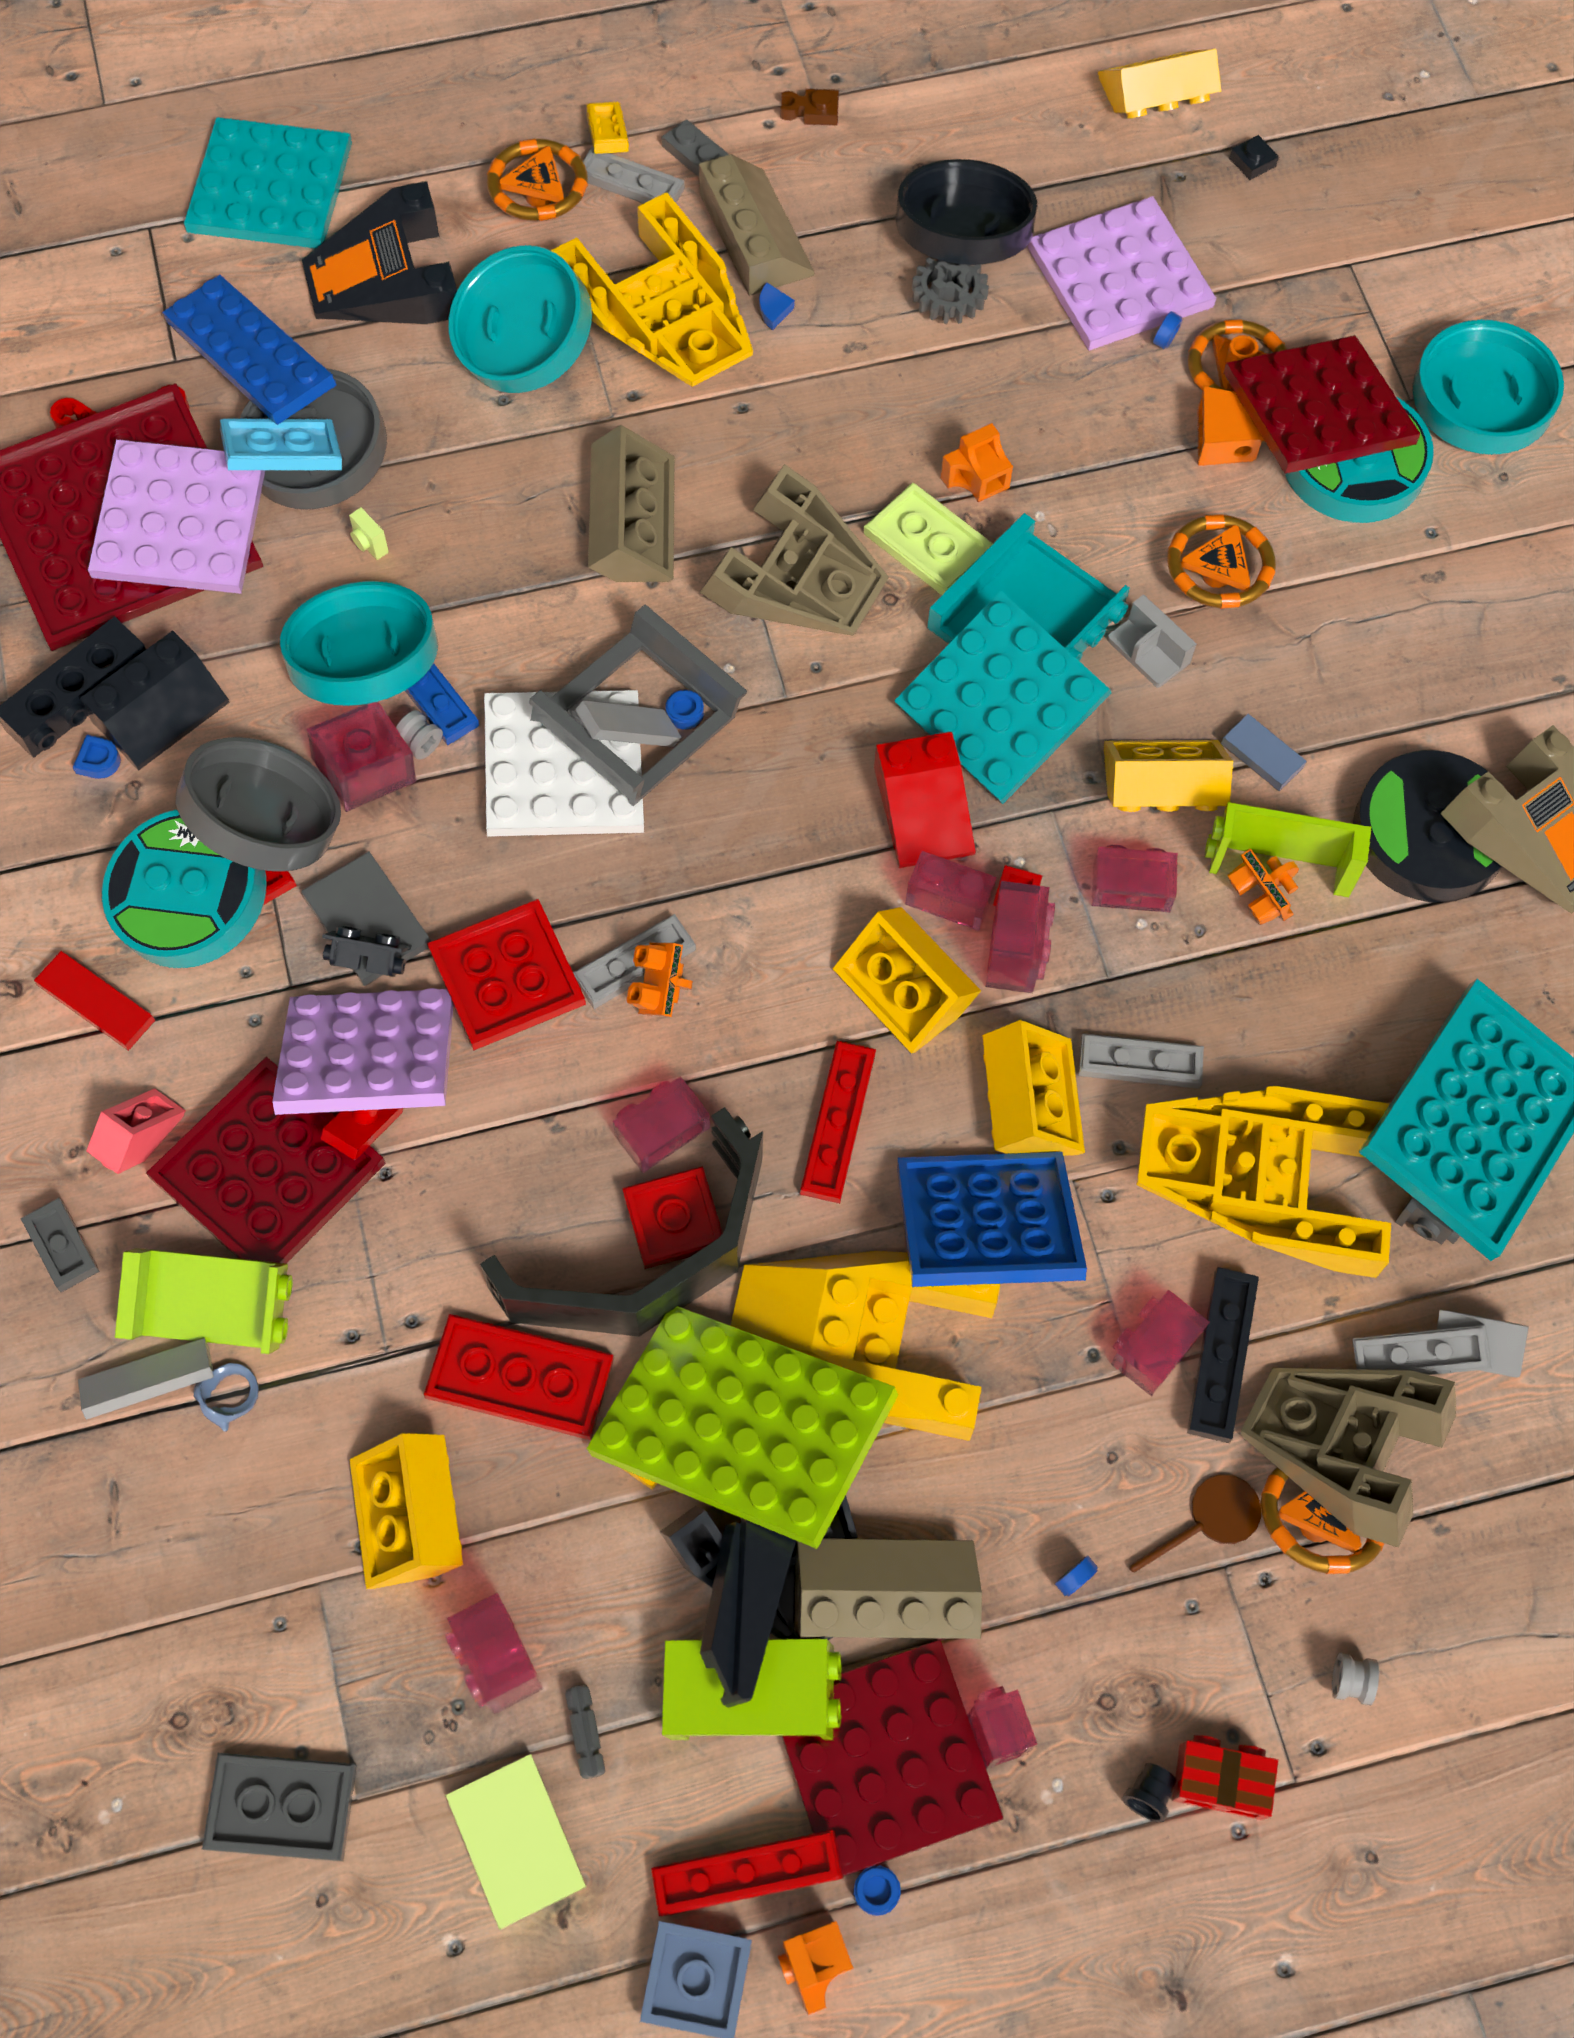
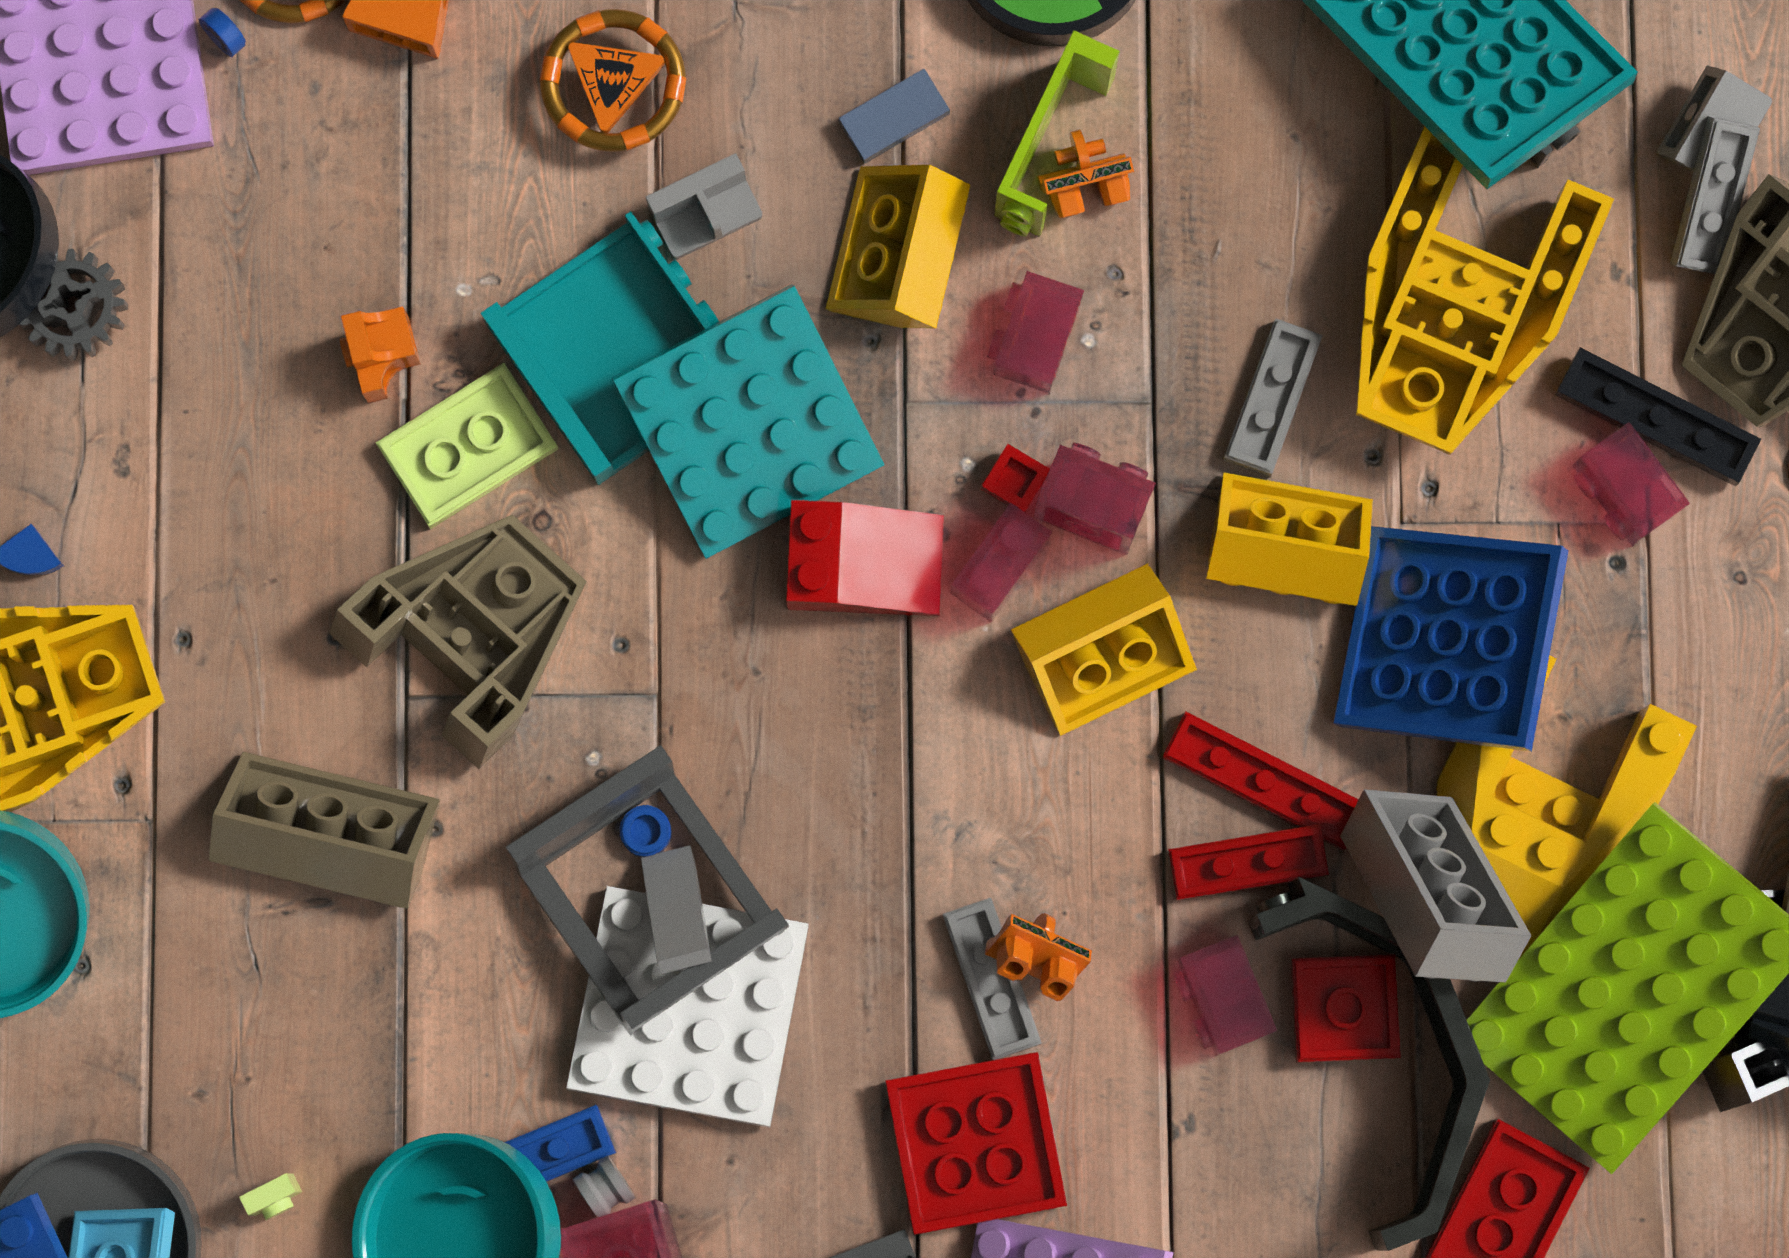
camera: 75 degrees left, 15 degrees up
(768, 1112) = (1248, 862): none -> red tile
(780, 1234) = (1435, 886): none -> light grey brick

